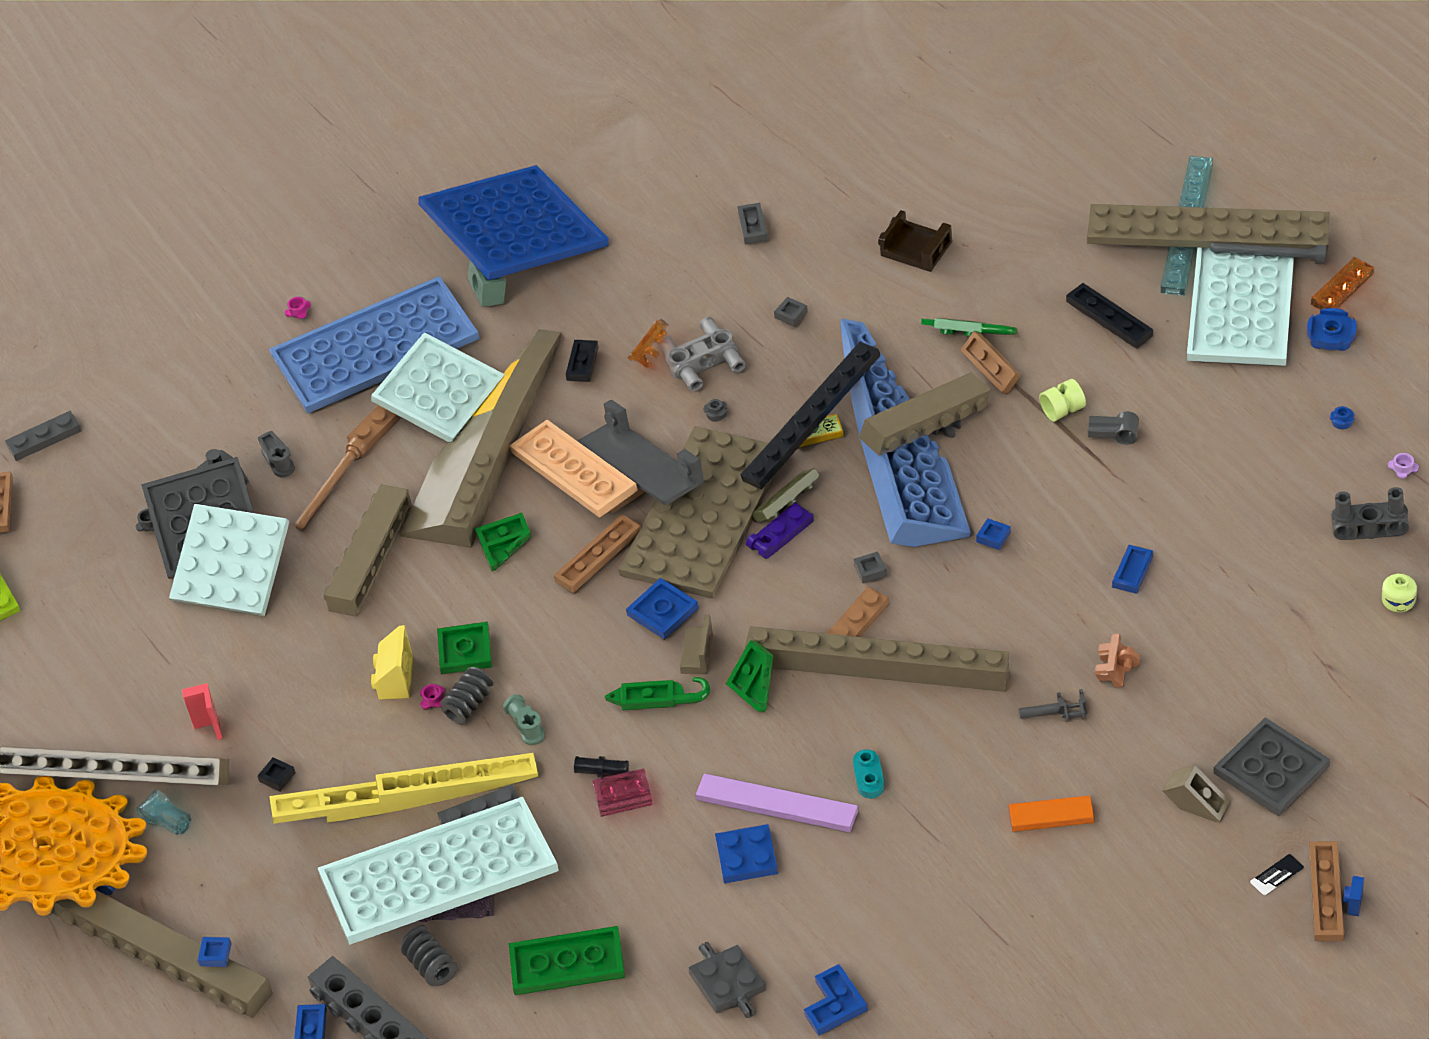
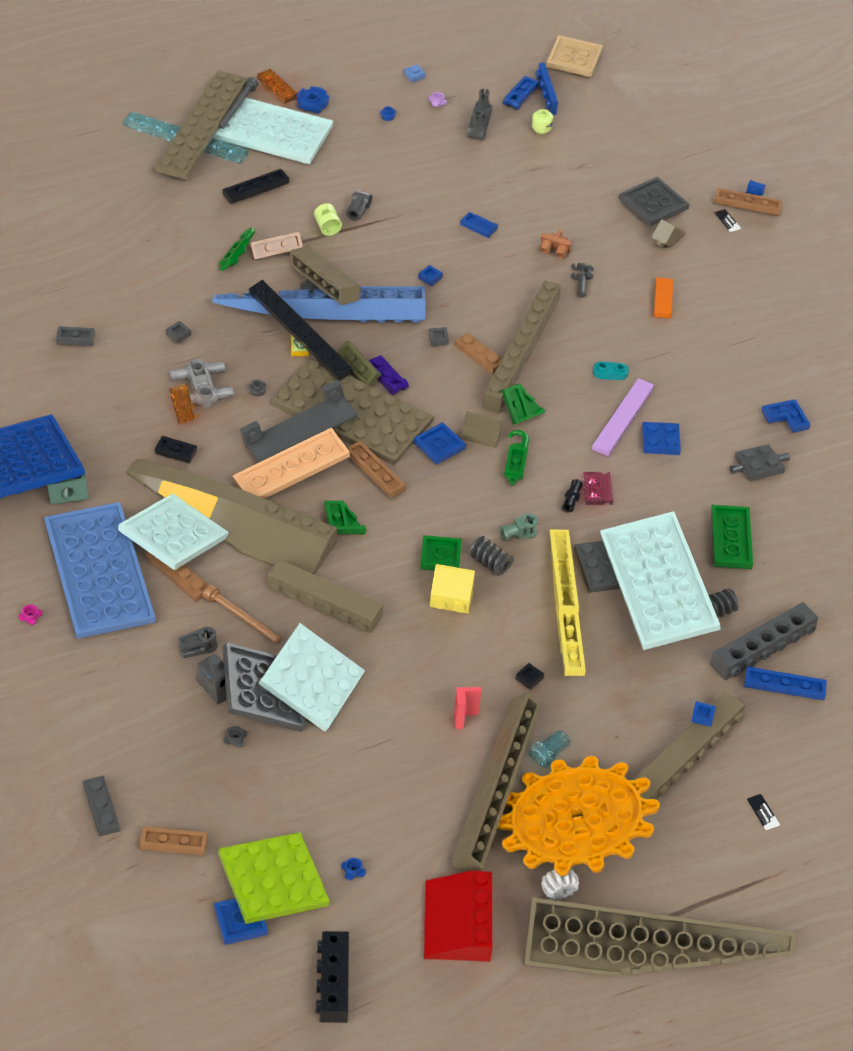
camera: 90 degrees left, 0 degrees up
(431, 696) = (481, 578): dark pink plate -> none
(914, 243) = (141, 258): dark brown panel -> none

